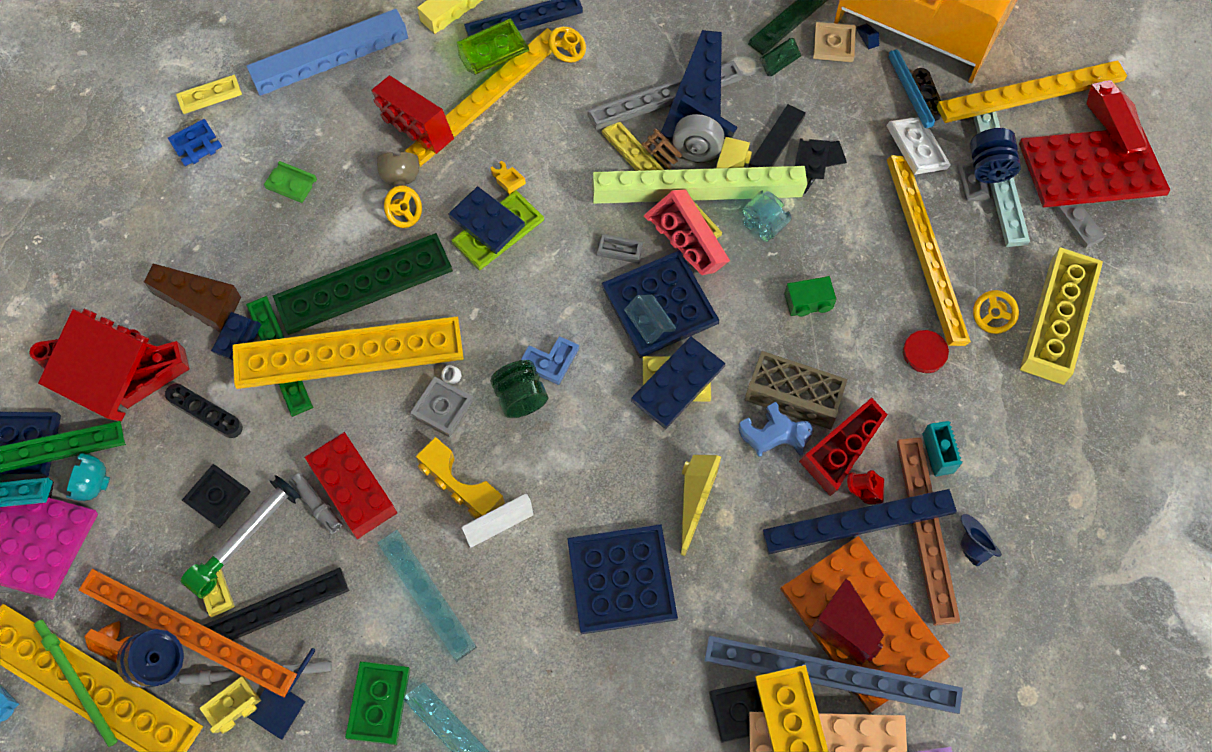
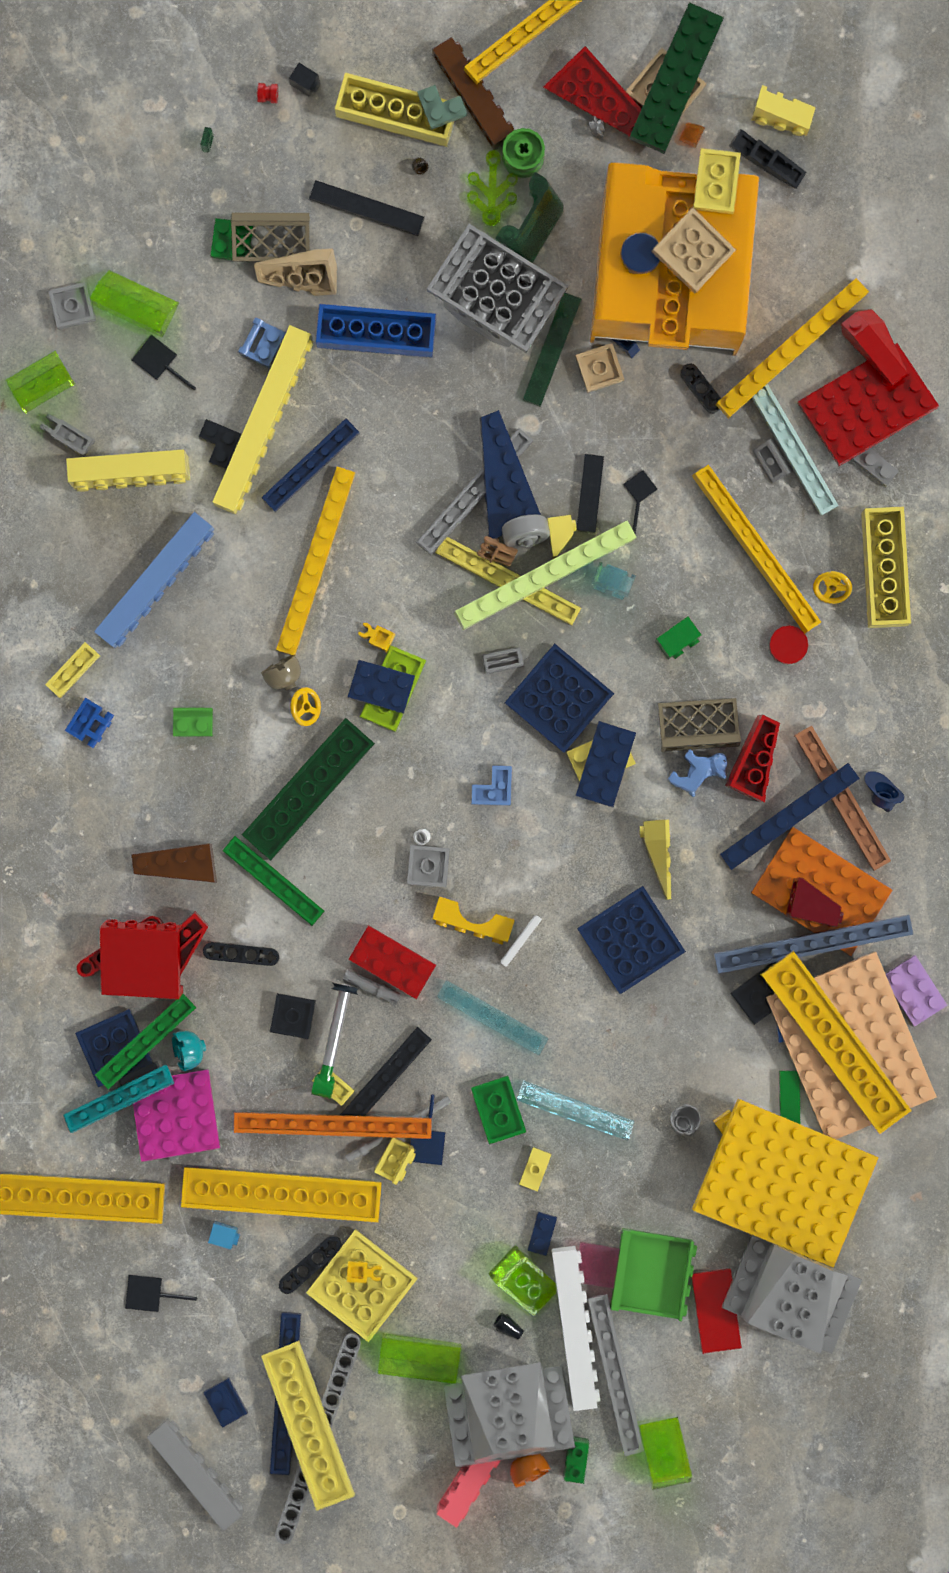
camera: 25 degrees left, 20 degrees up
(51, 643) = (240, 1178): bright green bar -> none
(105, 641) = (276, 1160): orange tile -> none
(150, 658) = (322, 1156): dark blue wheel -> none
(235, 331) = (232, 882): dark blue plate -> none
(346, 352) = (331, 856): yellow plate -> none
(412, 114) = (270, 620): red brick -> none
(491, 47) = (303, 516): clear neon green slope -> none
(519, 389) = (484, 827): clear green wheel -> none
(568, 42) = (369, 472): yellow piece -> none
(649, 317) = (559, 719): clear light blue panel -> none
(688, 231) = (556, 626): coral wedge -> none
(691, 107) = (525, 508): dark blue tile -> none
(780, 57) = (559, 406): clear green plate -> none
(814, 156) = (627, 501): black plate -> none
(867, 486) = (785, 786): red piece -> none
(911, 89) = (686, 390): dark azure axle -> none
(918, 146) = (713, 448): white tile -> none
(941, 448) = (831, 729): teal brick -> none
(995, 155) = (783, 442): dark blue wheel -> none

